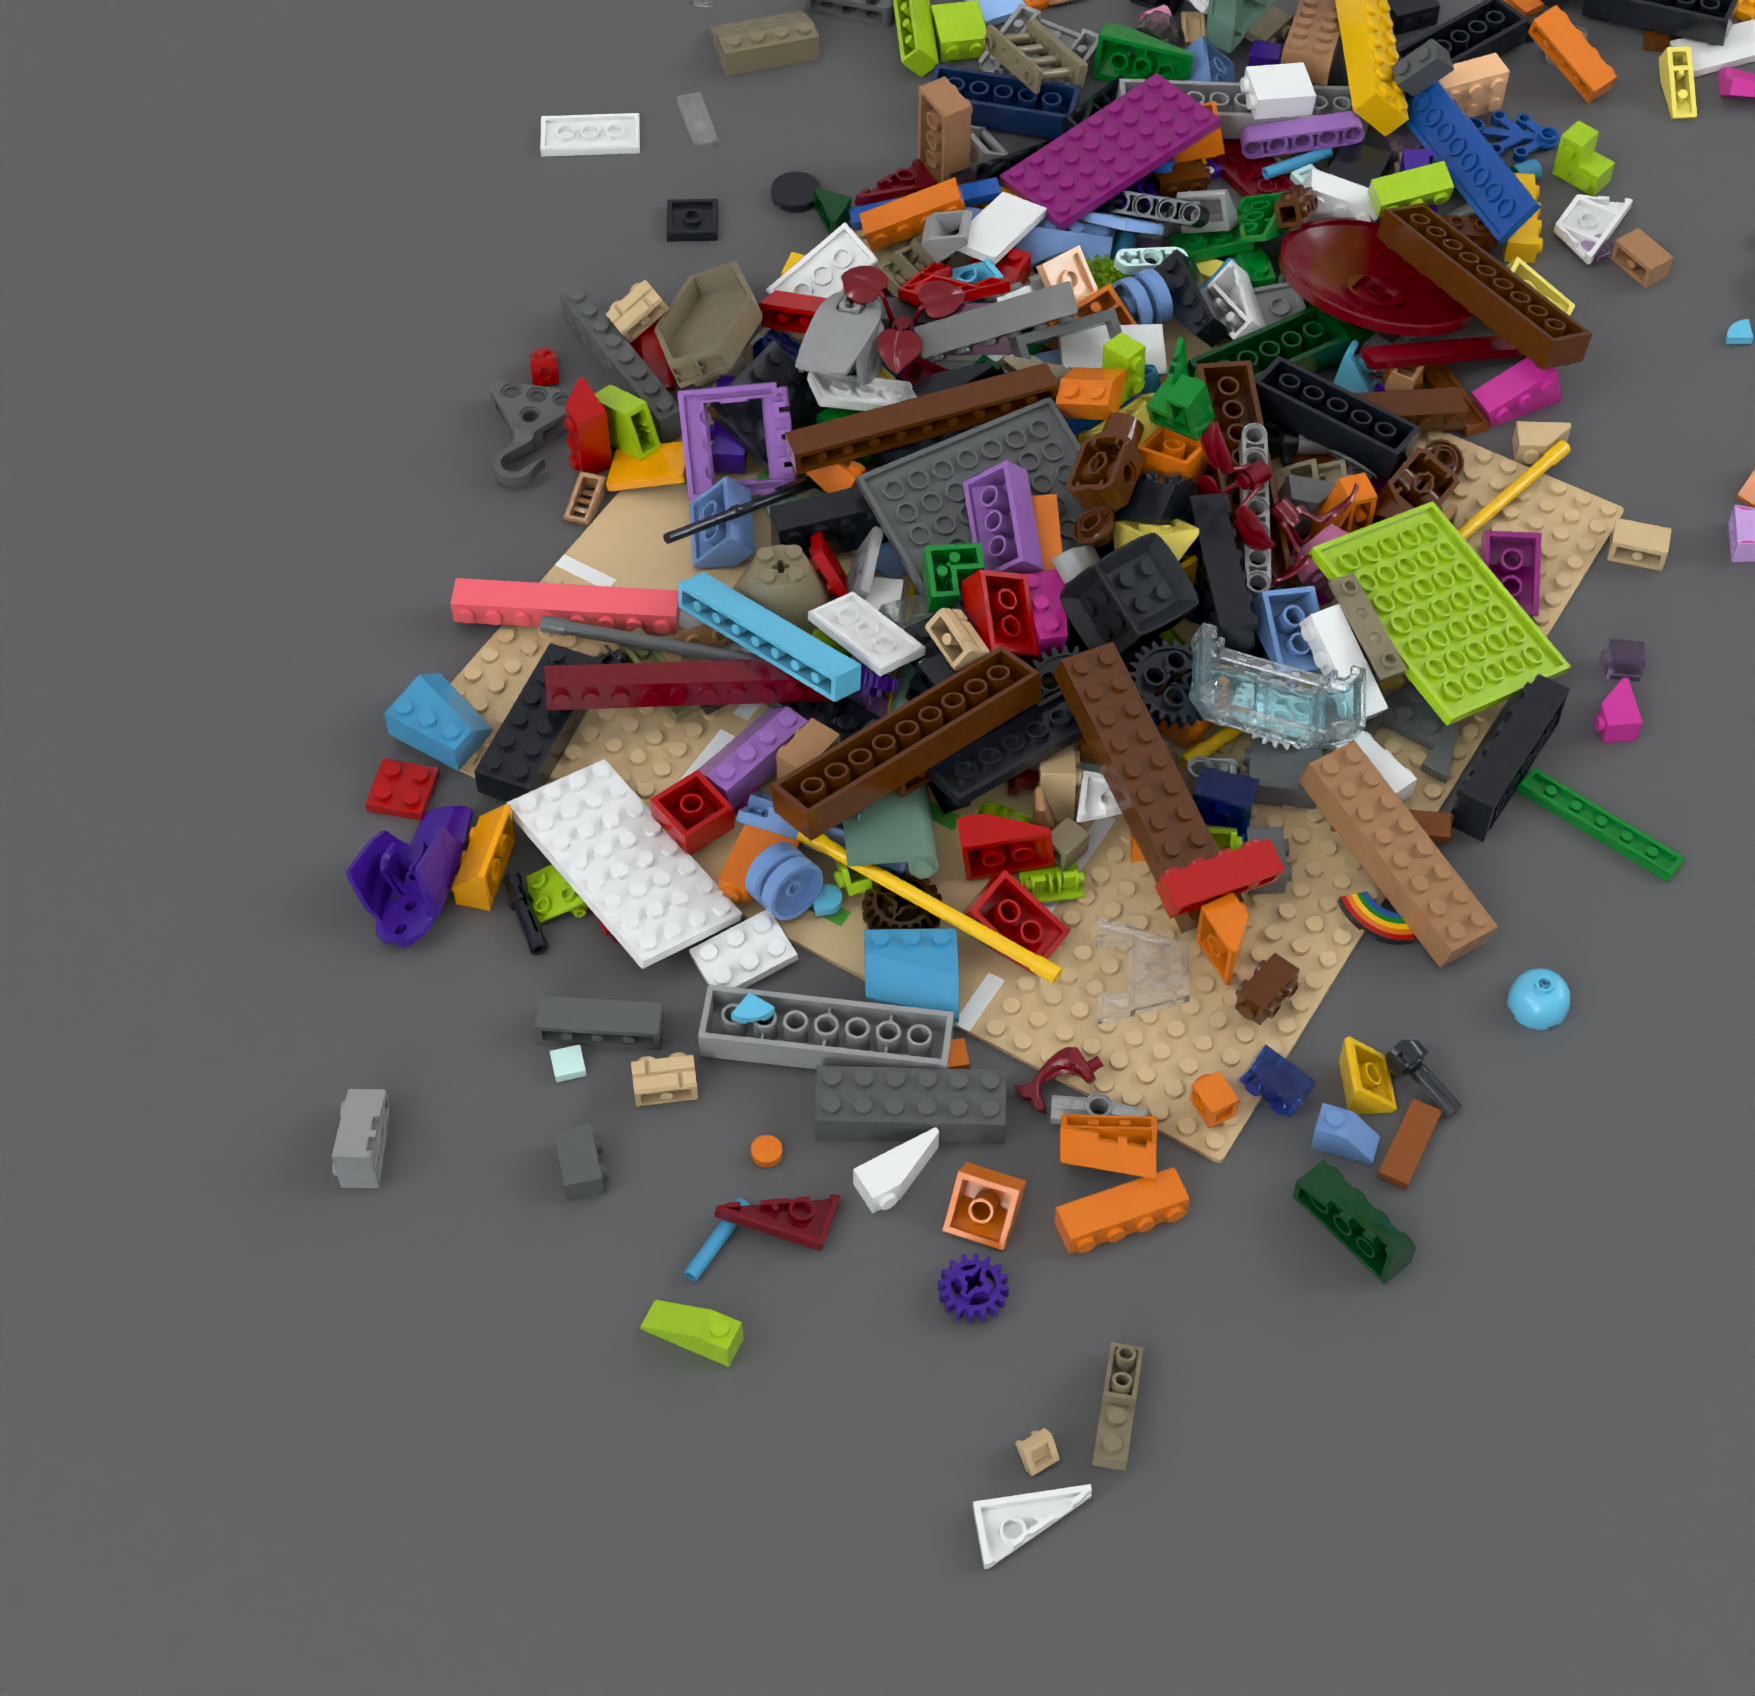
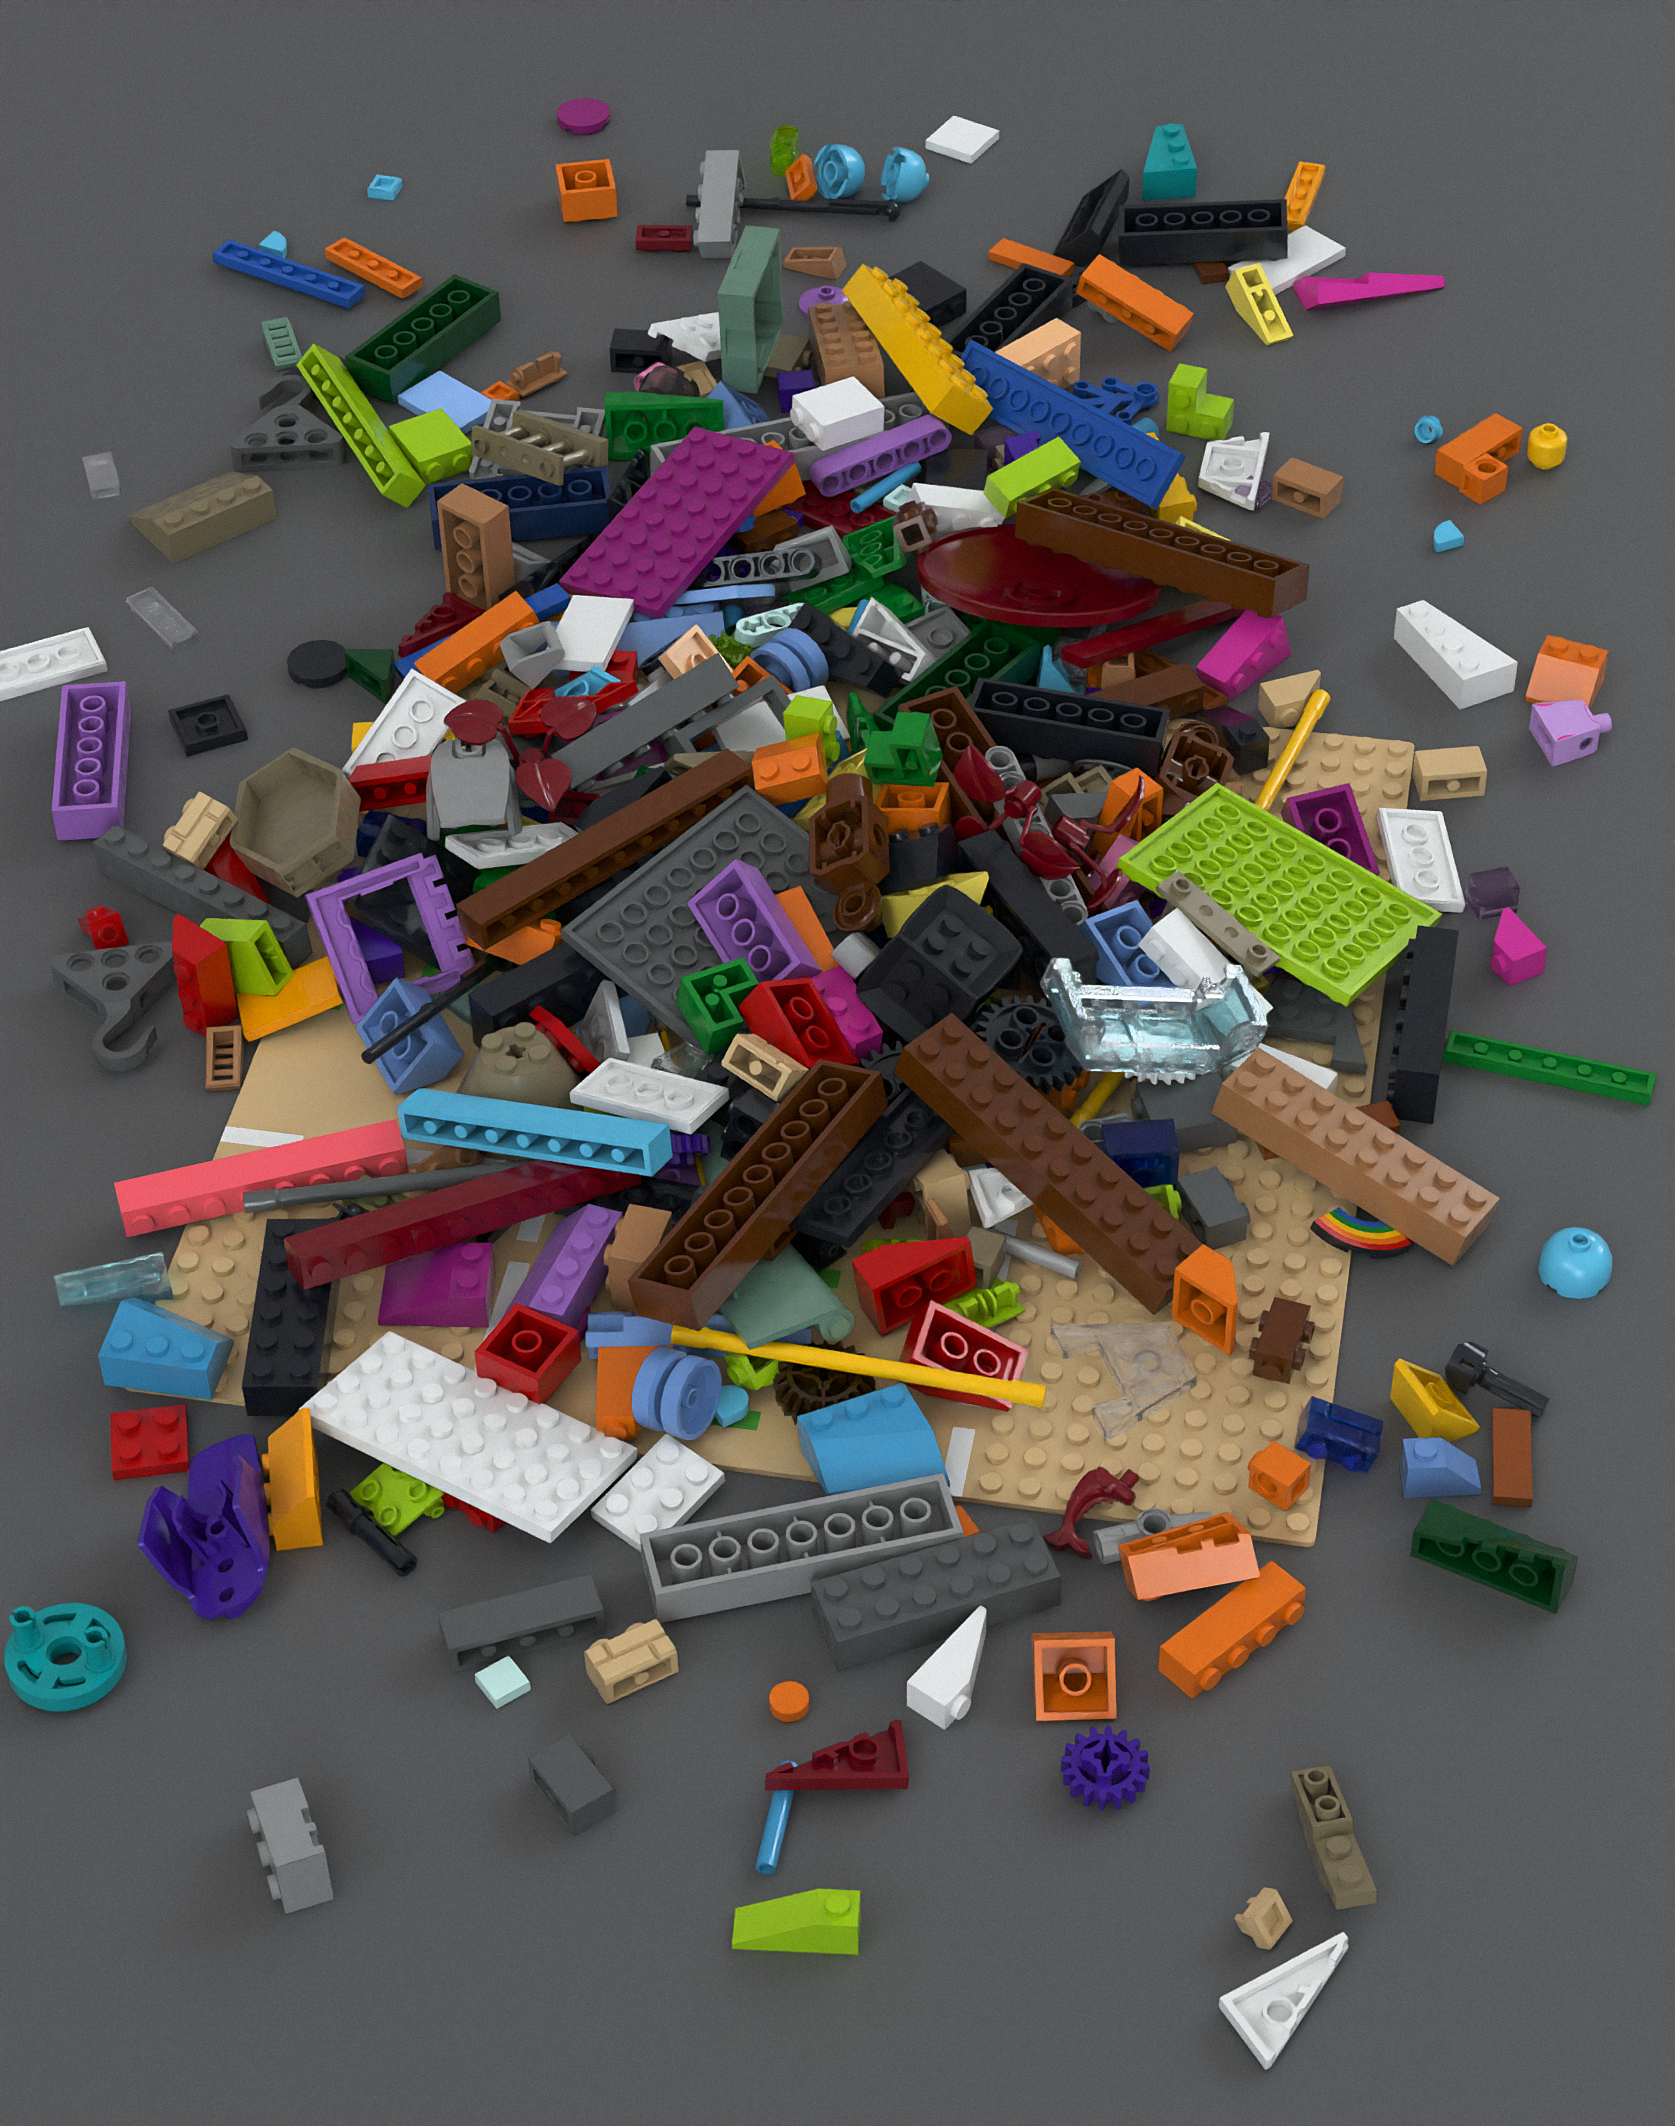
camera: 20 degrees left, 10 degrees down
(267, 917) = (59, 1630): none -> teal piece
(431, 656) = (112, 1282): none -> clear light blue wing
(591, 226) = (91, 760): none -> medium lavender brick
(657, 737) = (440, 1288): none -> magenta slope
(752, 1009) = (709, 1542): medium azure tile -> none
(1113, 853) = (1040, 1255): none -> light grey piece
(1214, 878) = (1187, 1223): red brick -> none
(1422, 68) = (989, 349): dark grey brick -> none
(1479, 463) = (1242, 735): none -> black slope
(1580, 612) = (1421, 857): none -> white tile
(1692, 443) = (1453, 656): none -> white wedge

